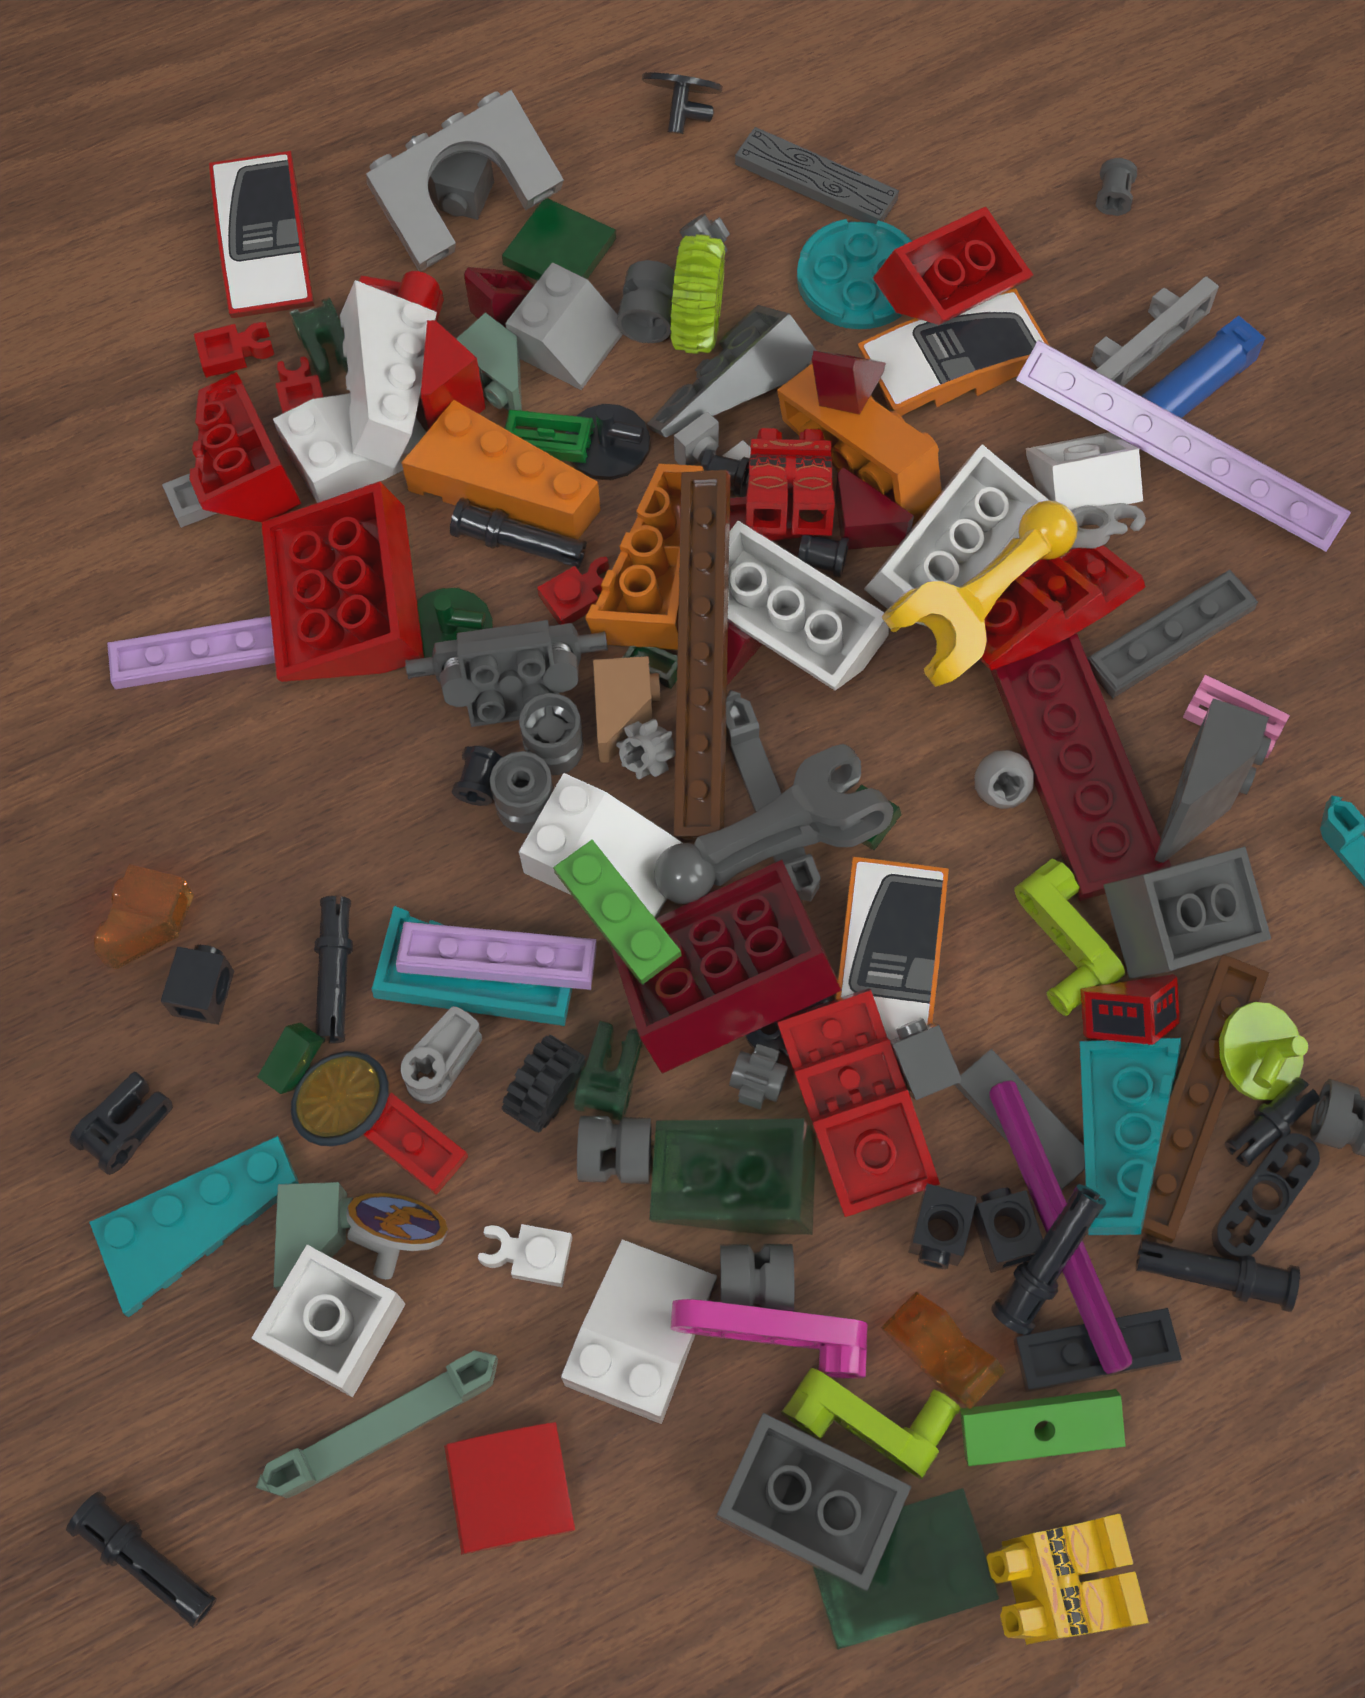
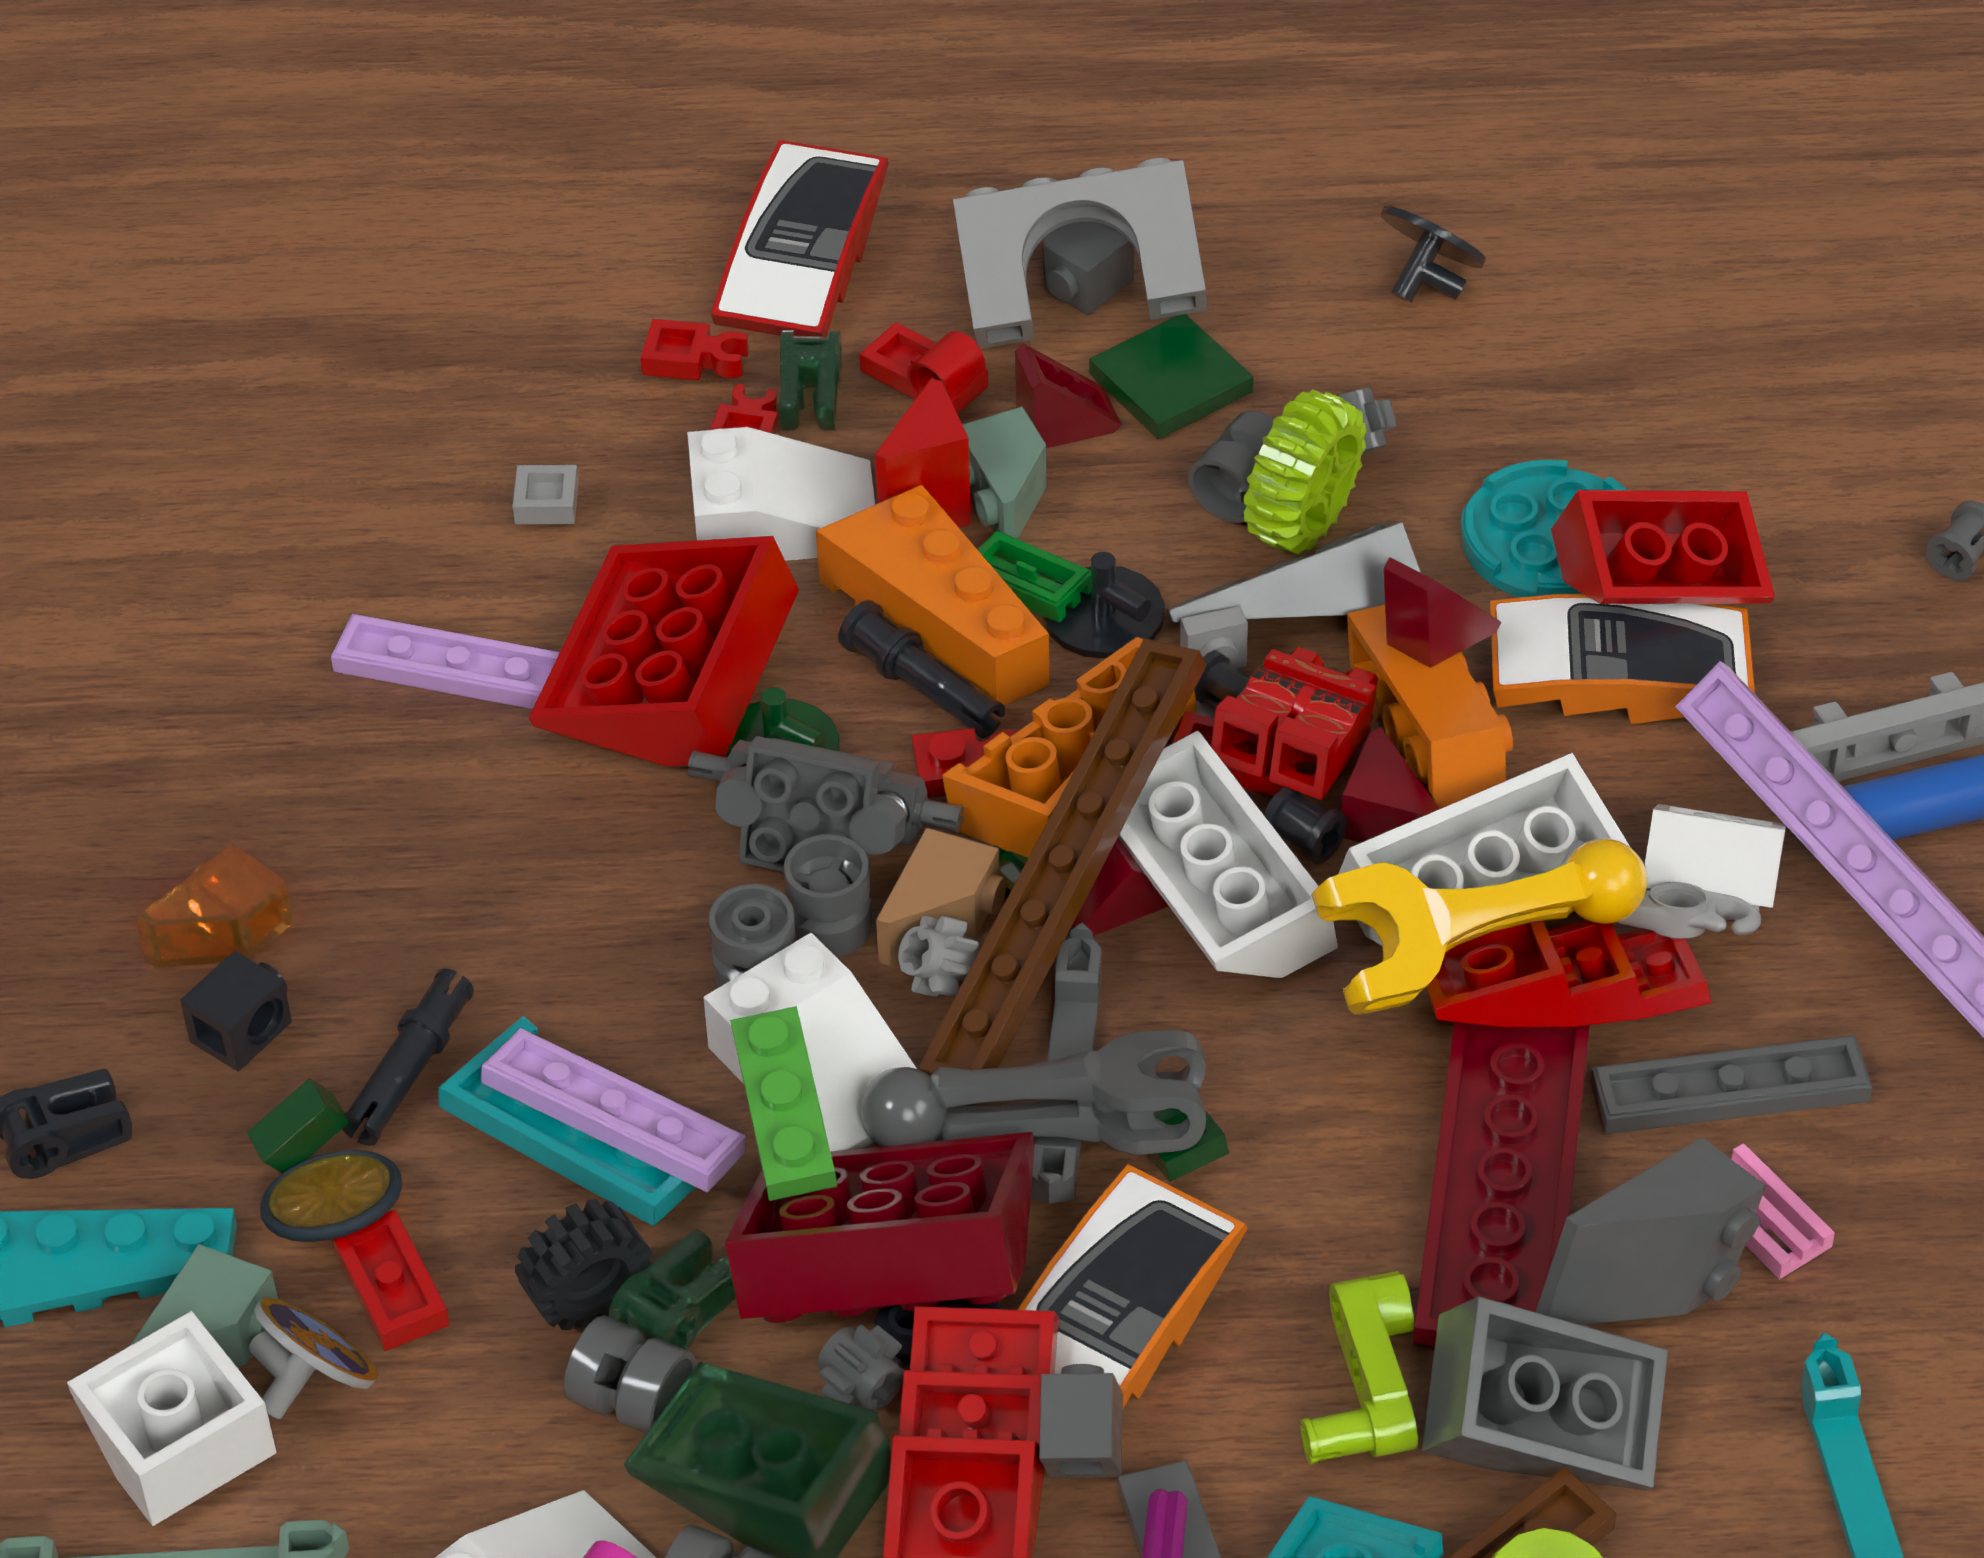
camera: 25 degrees right, 20 degrees down
(235, 458) = (628, 470): red wedge -> none
(384, 369) = (851, 419): white wedge -> none
(445, 1052) = (481, 1192): light grey piece -> none
(475, 778) = (691, 920): black bush -> none
(536, 1255) = (463, 1464): white plate -> none
(564, 326) = (1118, 460): light grey slope -> none
(816, 177) = (1559, 404): dark grey tile -> none
(1004, 779) = (1387, 1158): light grey piece -> none
(1131, 1010) = (1403, 1482): red slope -> none

